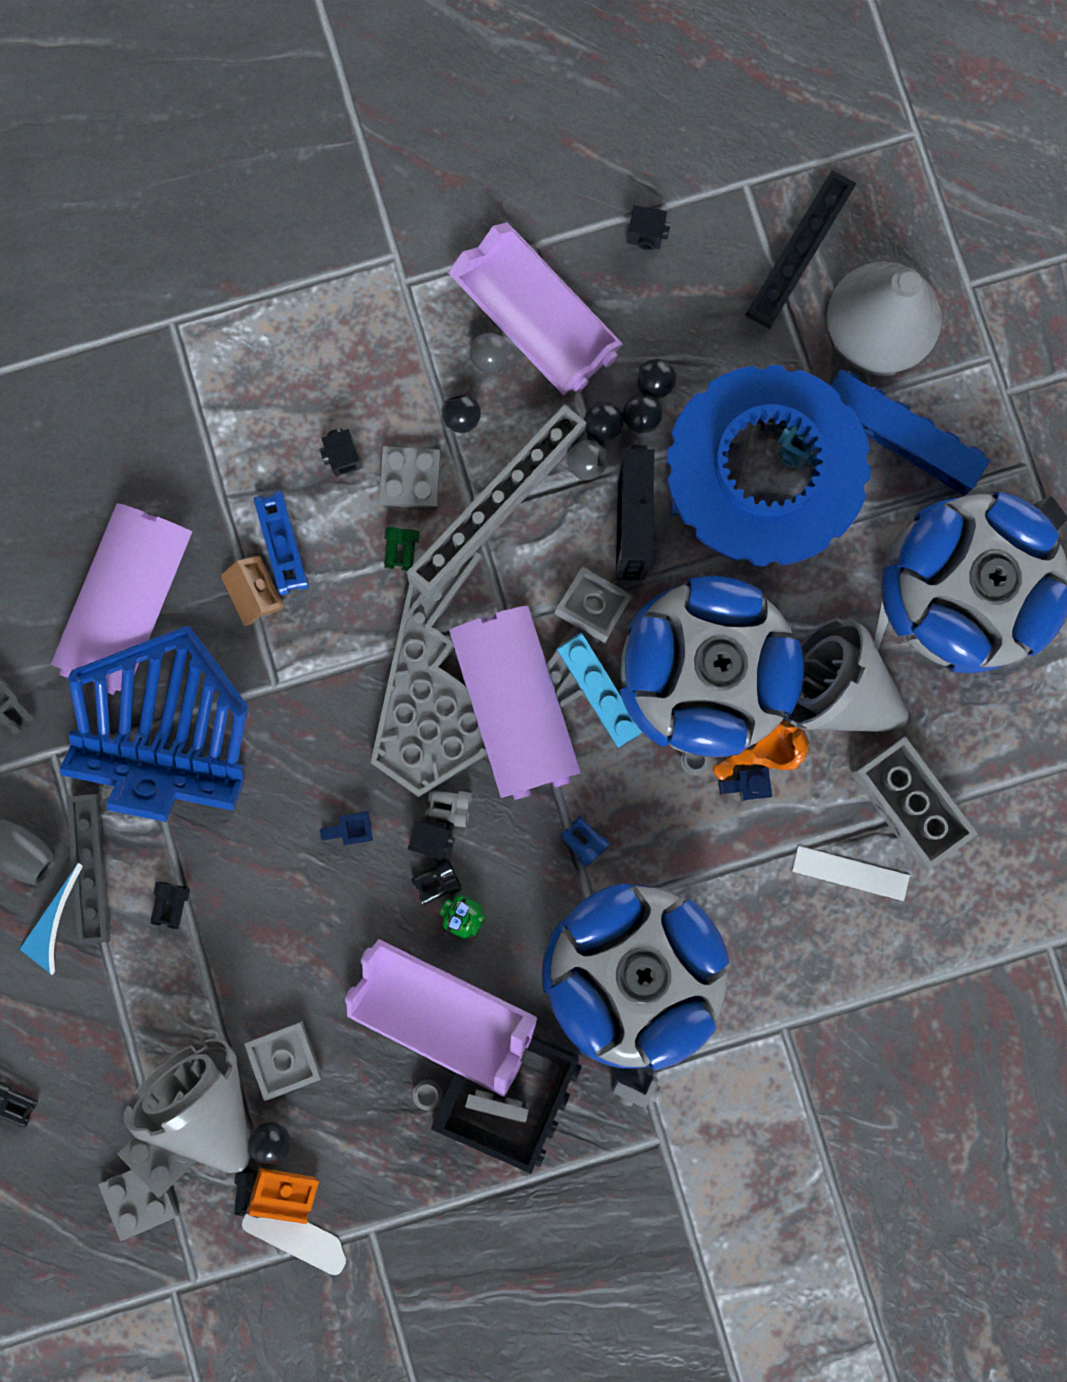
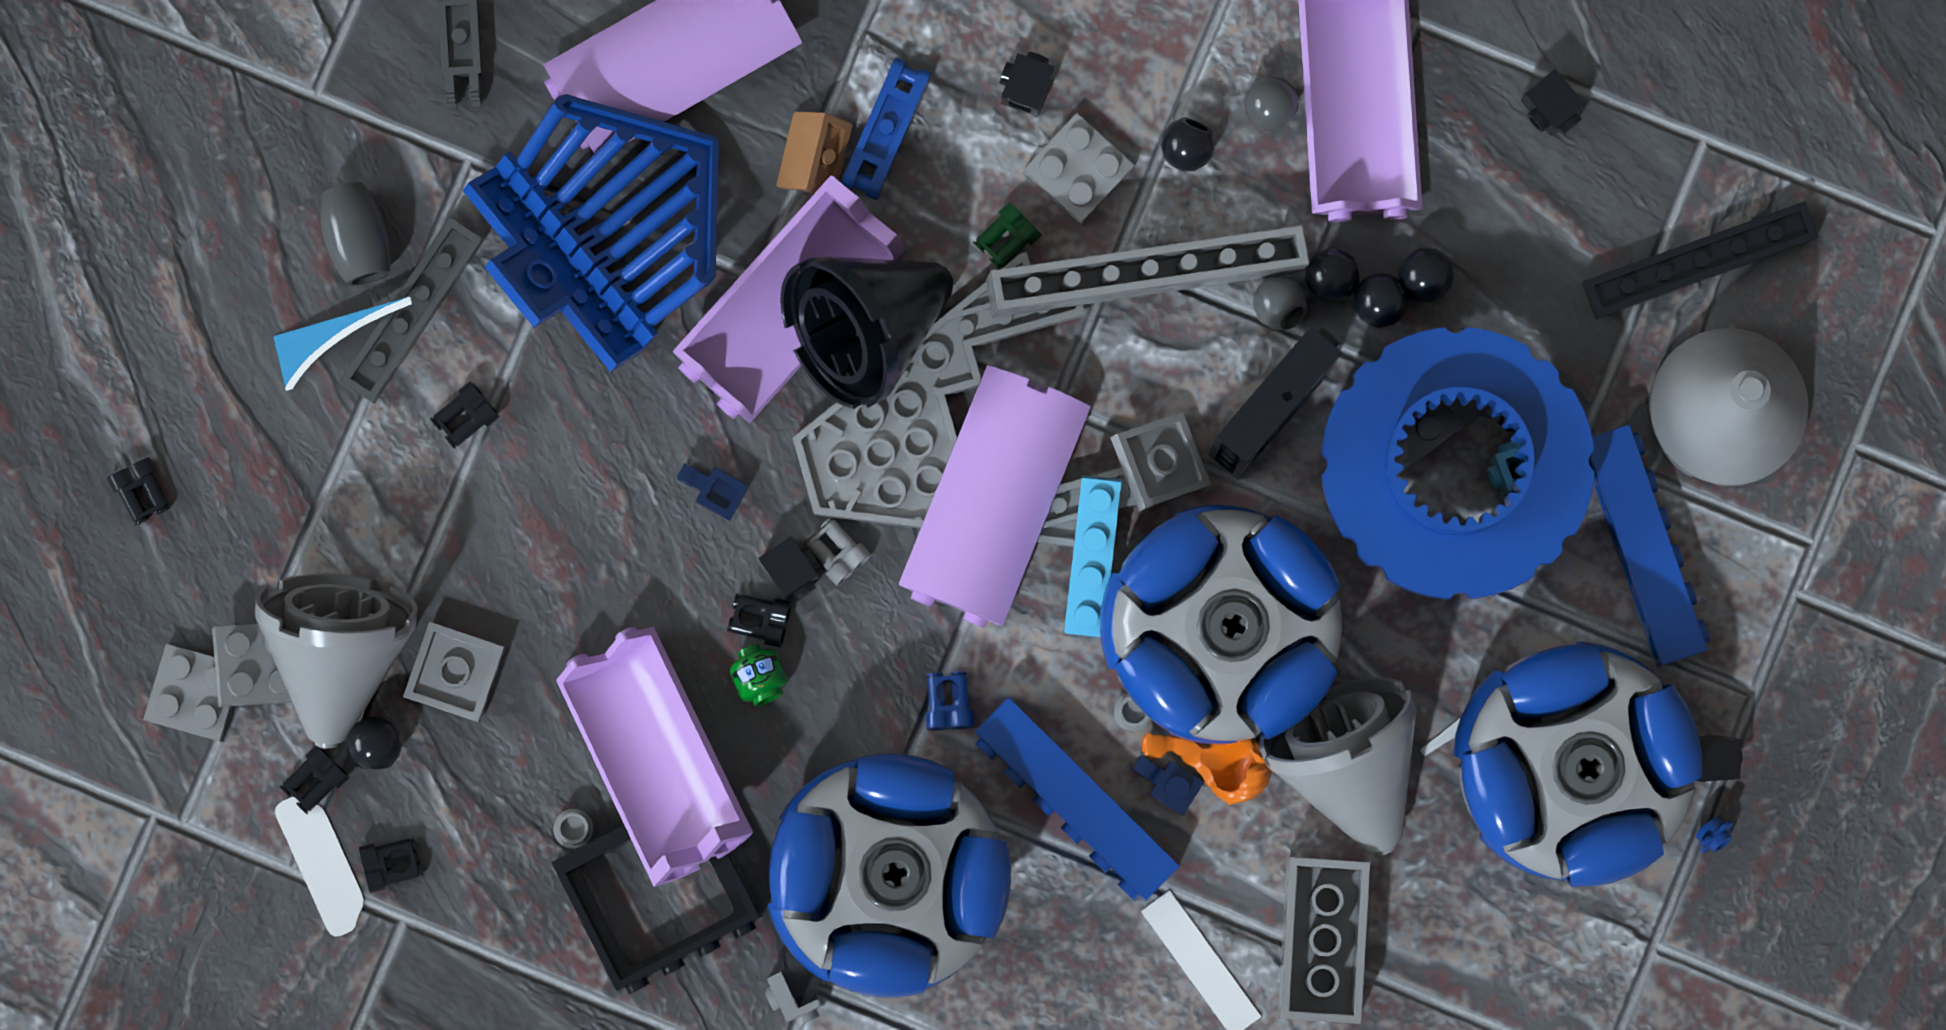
camera: 35 degrees right, 0 degrees up
(282, 1196) = (346, 807): orange plate -> none
(303, 685) = (742, 339): none -> lavender cylinder
(328, 1214) = (374, 864): none -> black piece
(354, 662) = (861, 321): none -> black cone
(510, 1109) = (644, 906): light grey plate -> none
(705, 838) = (1076, 799): none -> blue brick

